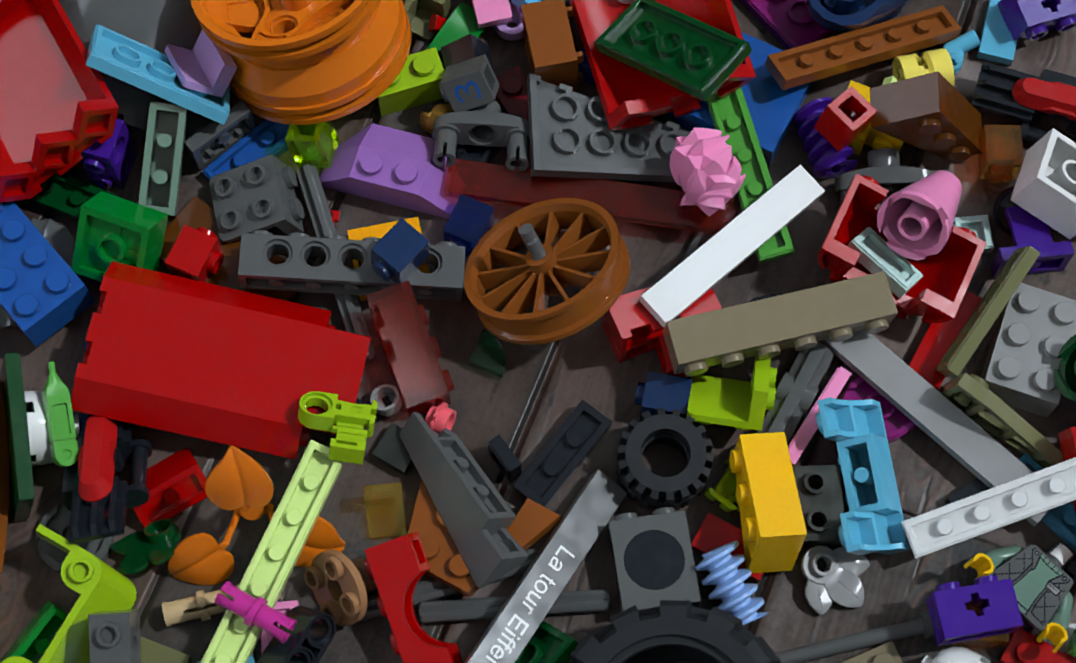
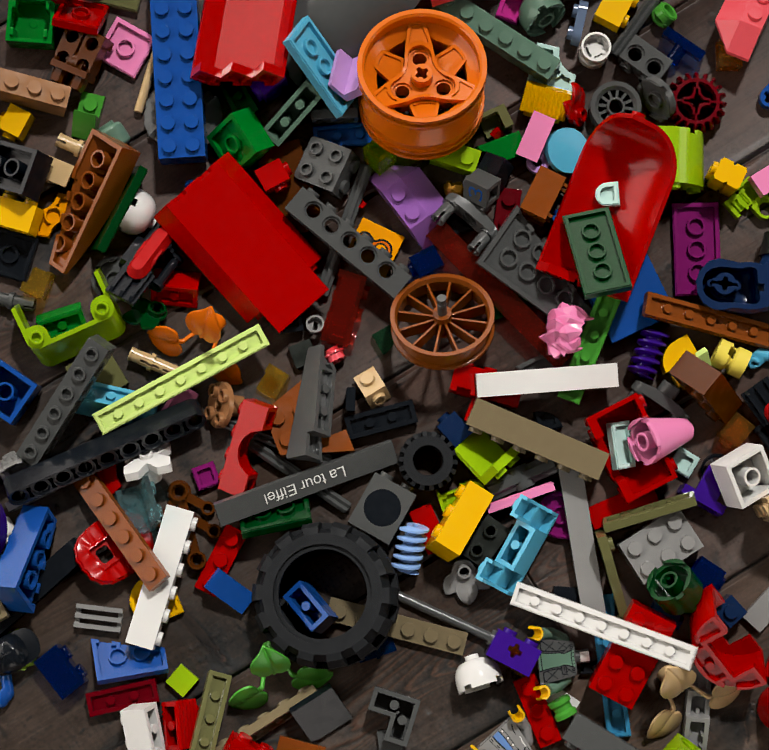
camera: 40 degrees right, 15 degrees up
(59, 420) = (144, 219): bright green piece -> none
(255, 612) = (170, 391): dark pink pin -> none
(349, 420) = (284, 328): lime piece -> none
(399, 252) = (372, 258): dark blue brick -> none
(520, 423) = (372, 387): none -> tan bracket
(845, 118) = (658, 357): red brick -> none

